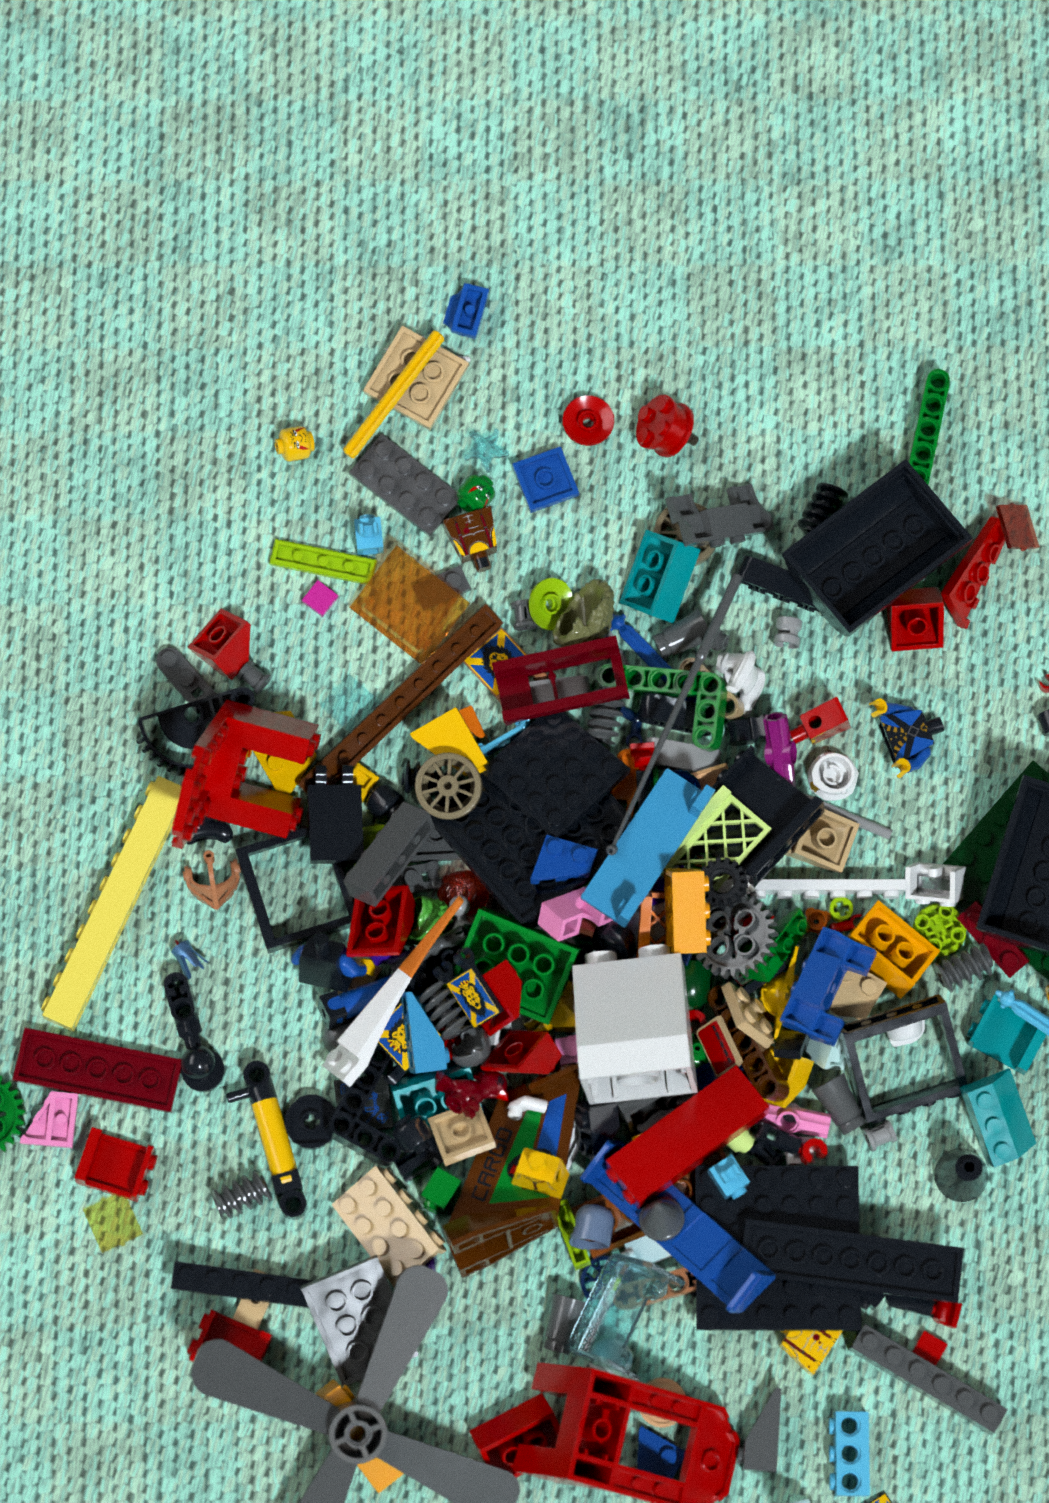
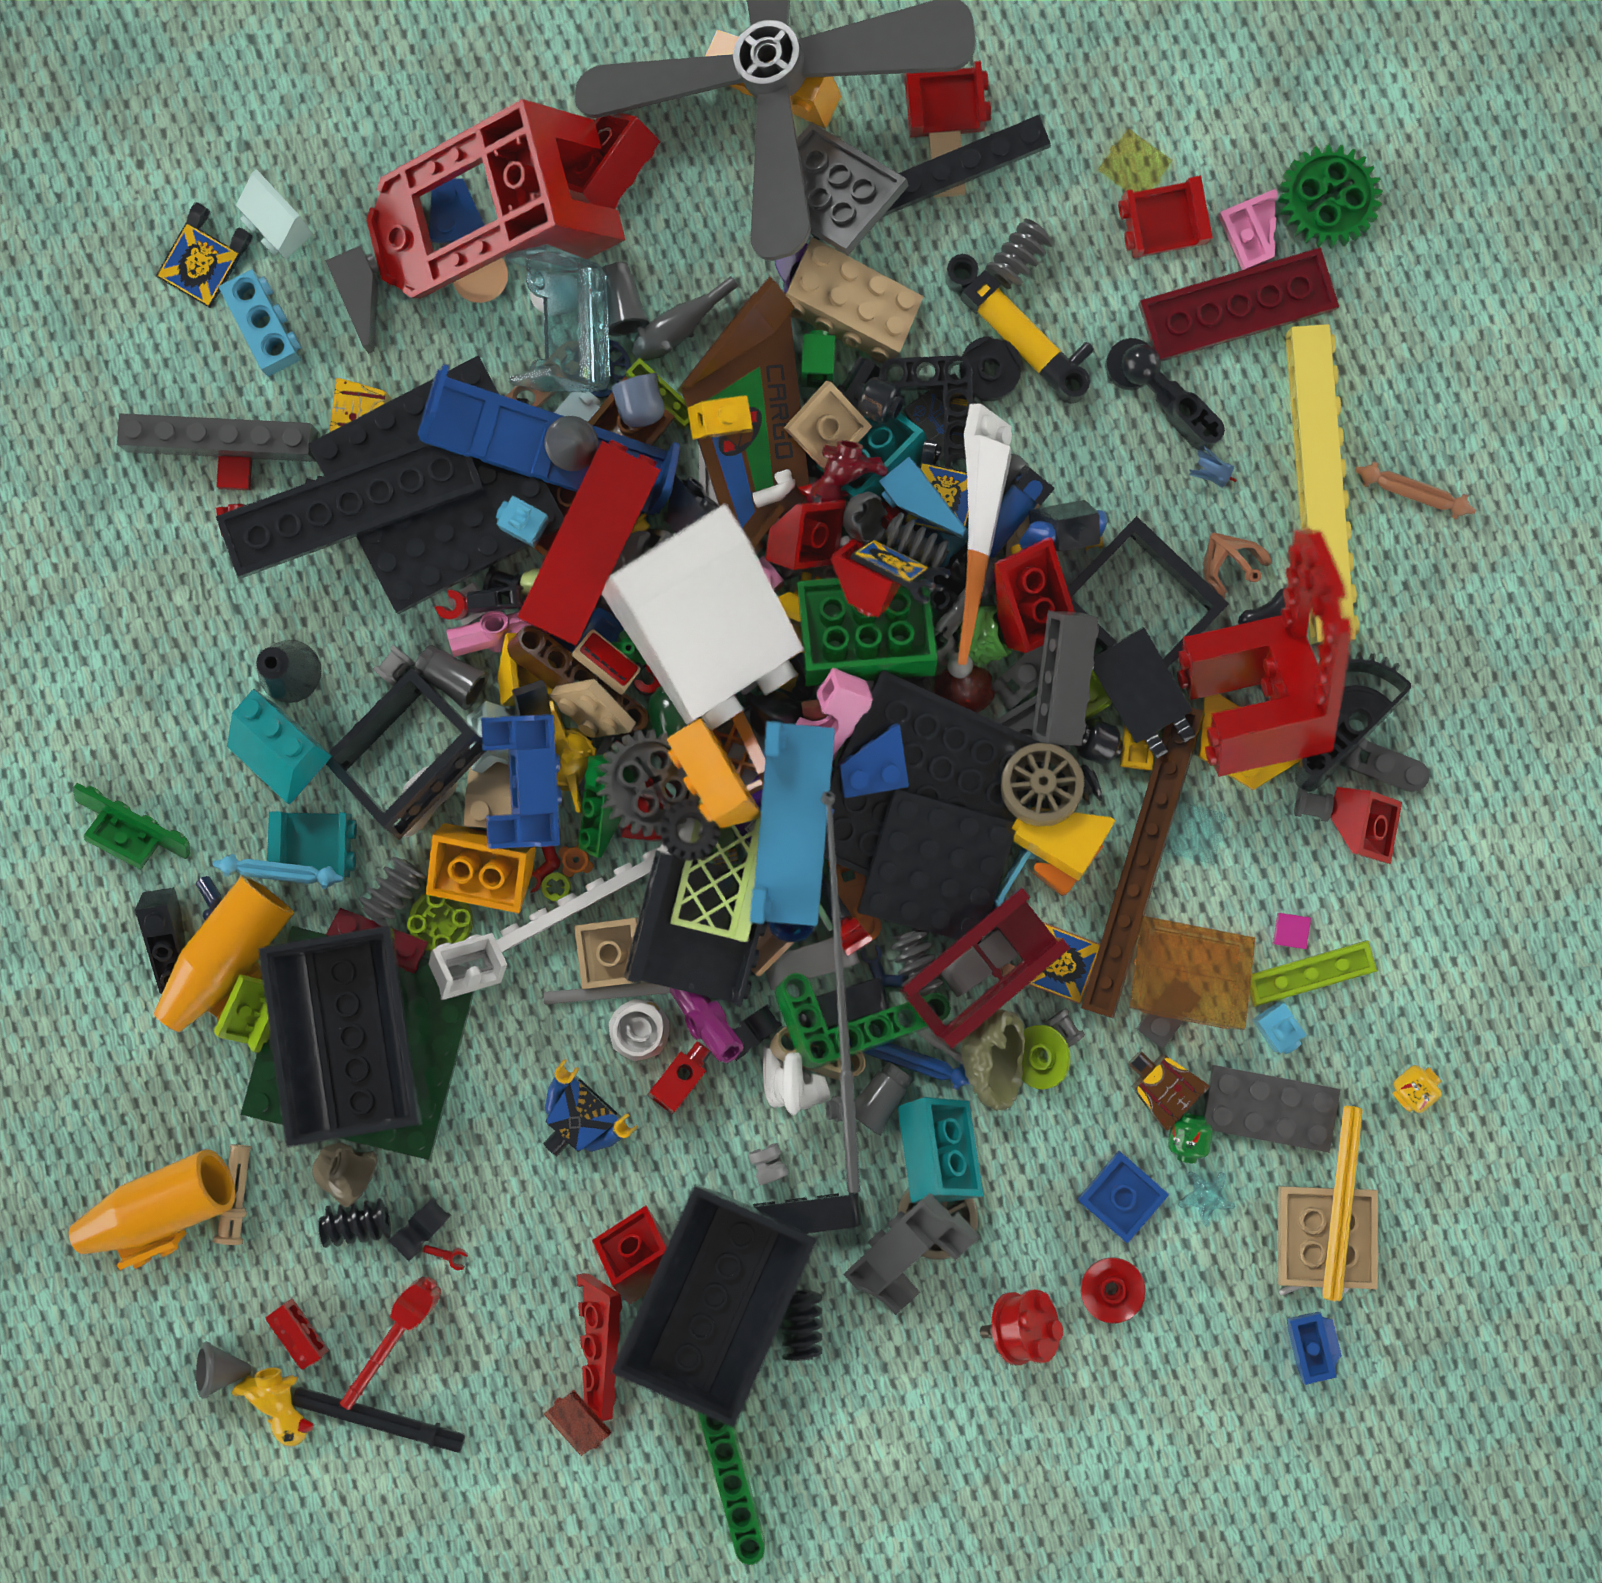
camera: 155 degrees right, 10 degrees up
(46, 863) = (1415, 490): none -> nougat wheel
(531, 1281) = (677, 323): none -> dark grey piece

